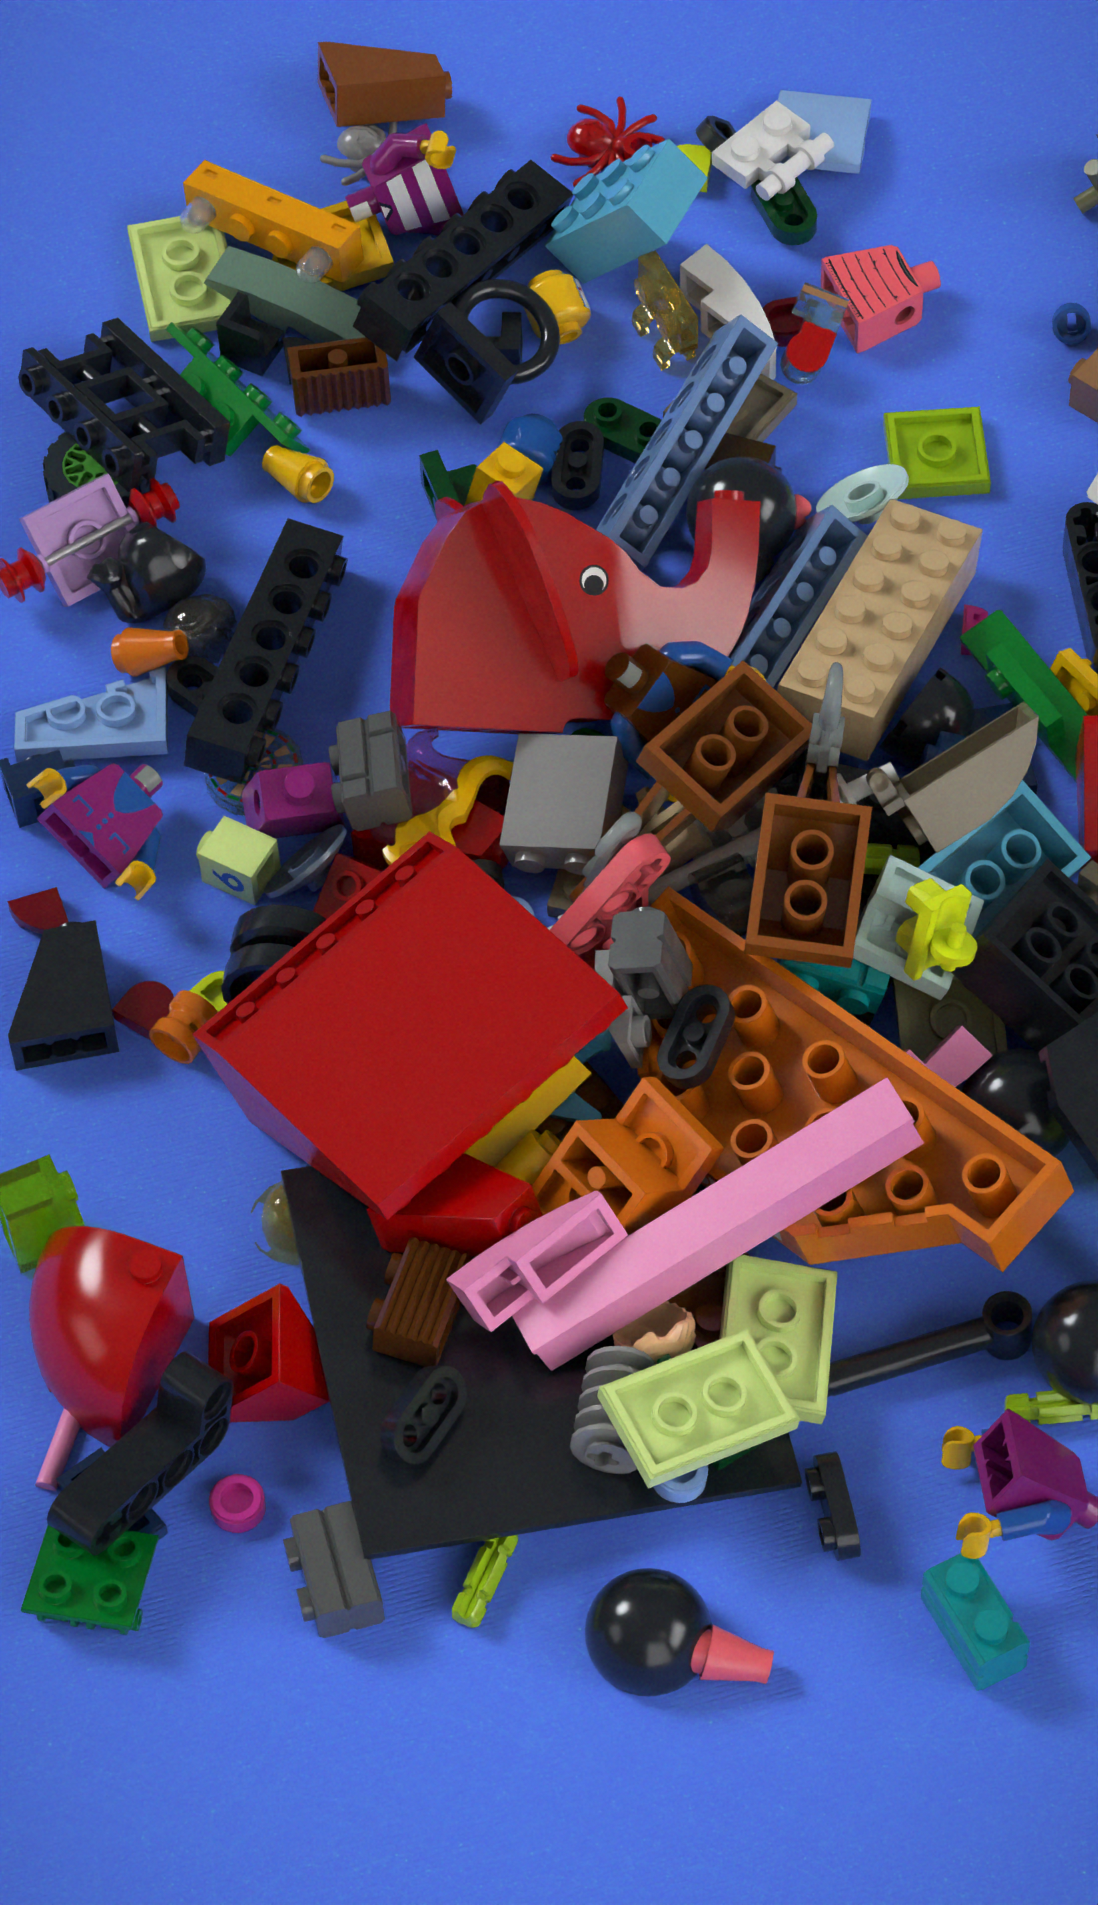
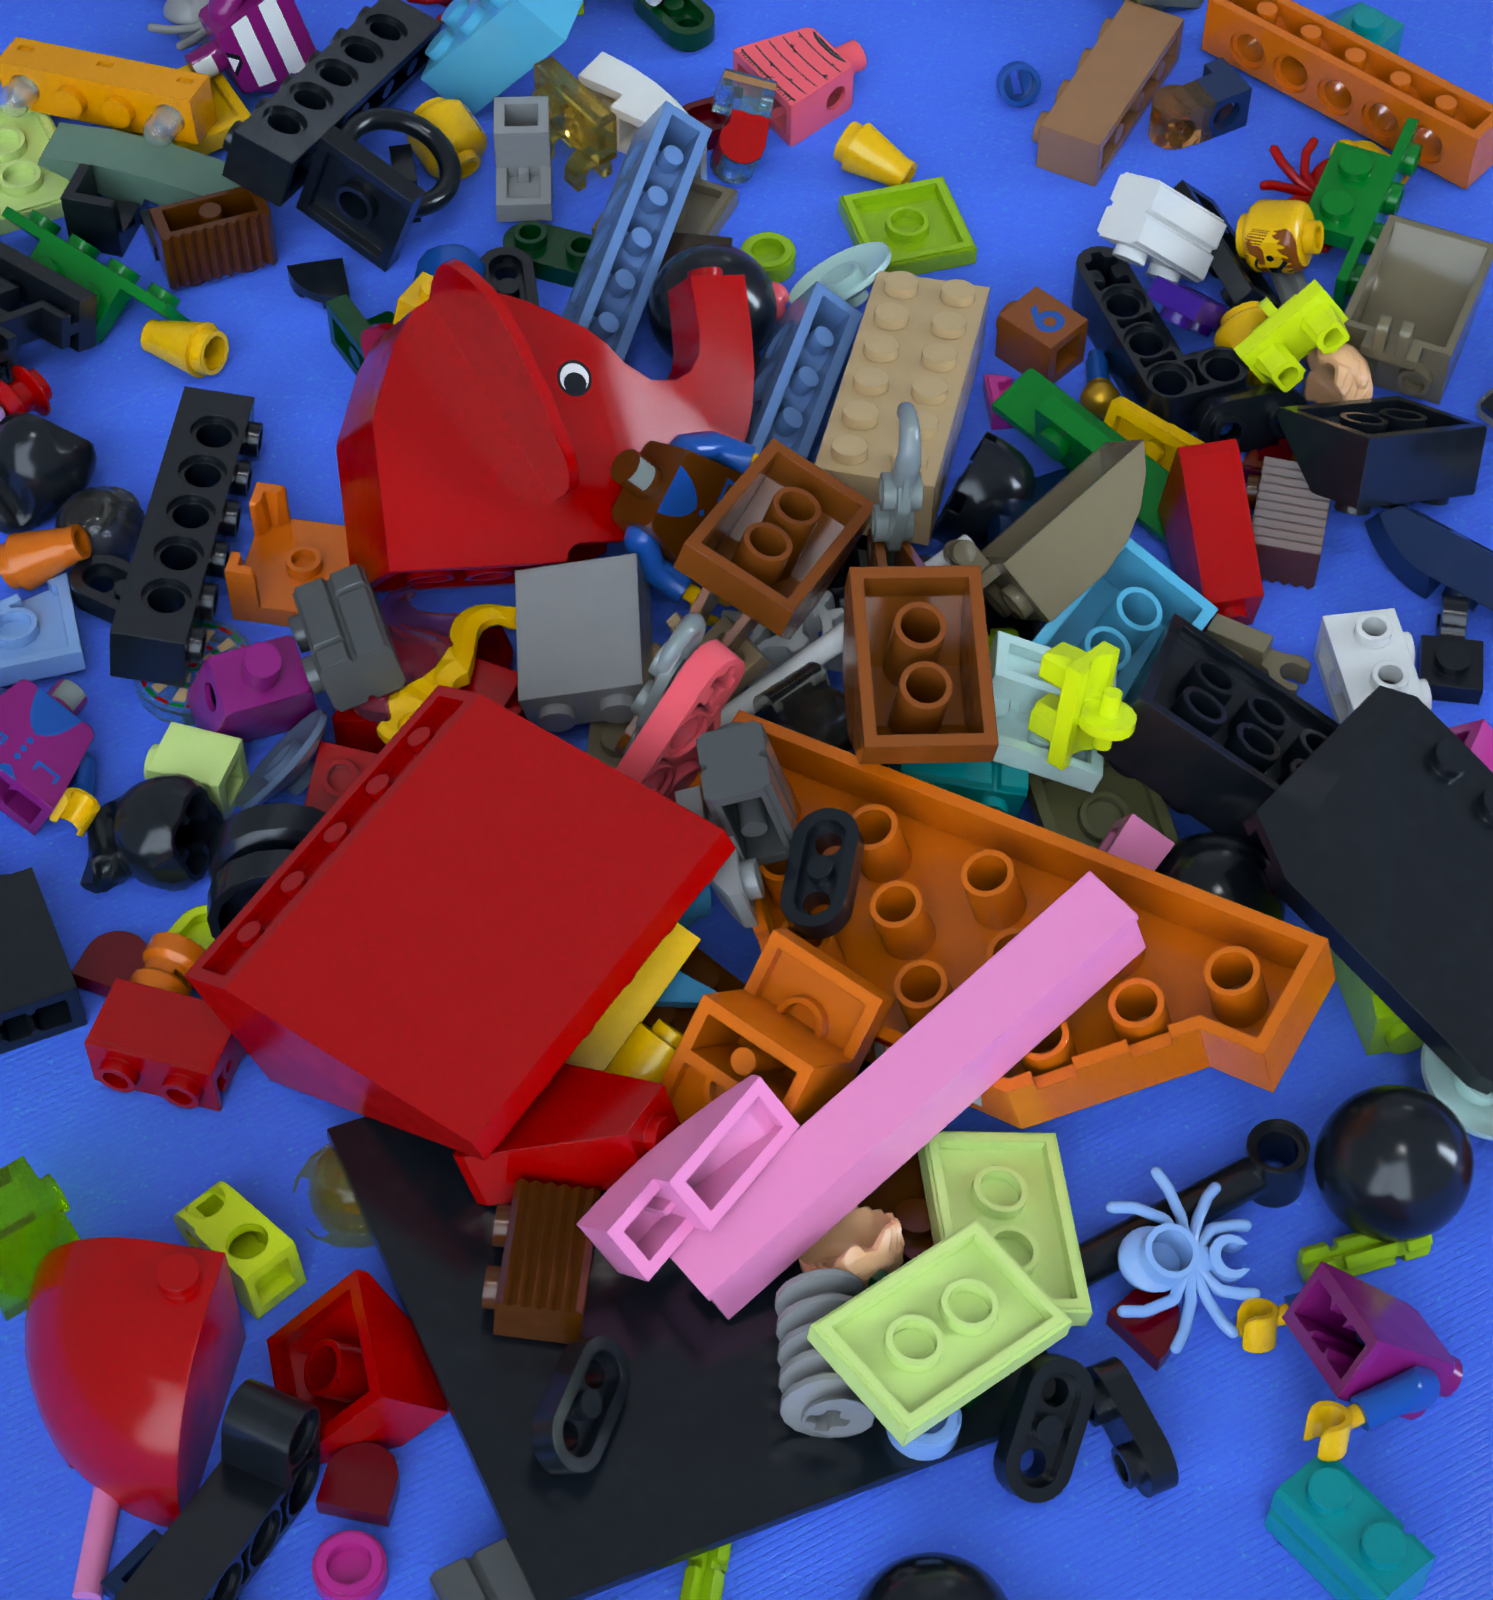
camera: 15 degrees left, 5 degrees down
(170, 1081) = (162, 1046): none -> red hinge
(194, 908) = (152, 833): none -> black piece
(207, 1251) = (258, 1253): none -> neon yellow leg
(256, 1442) = (360, 1484): none -> dark red tile
(344, 686) = (280, 558): none -> orange panel
(423, 428) = (319, 280): none -> black tile
(615, 341) = (523, 158): none -> light grey brick
(773, 1494) = (1047, 1427): none -> black plate
(808, 462) = (773, 253): none -> lime tile
(875, 1428) = (1149, 1335): none -> dark red tile
(909, 1387) = (1181, 1259): none -> light blue animal
(922, 377) = (872, 156): none -> yellow cone
(1021, 578) = (1041, 335): none -> dark orange brick
(1060, 633) = (1099, 389): none -> pearl gold piece

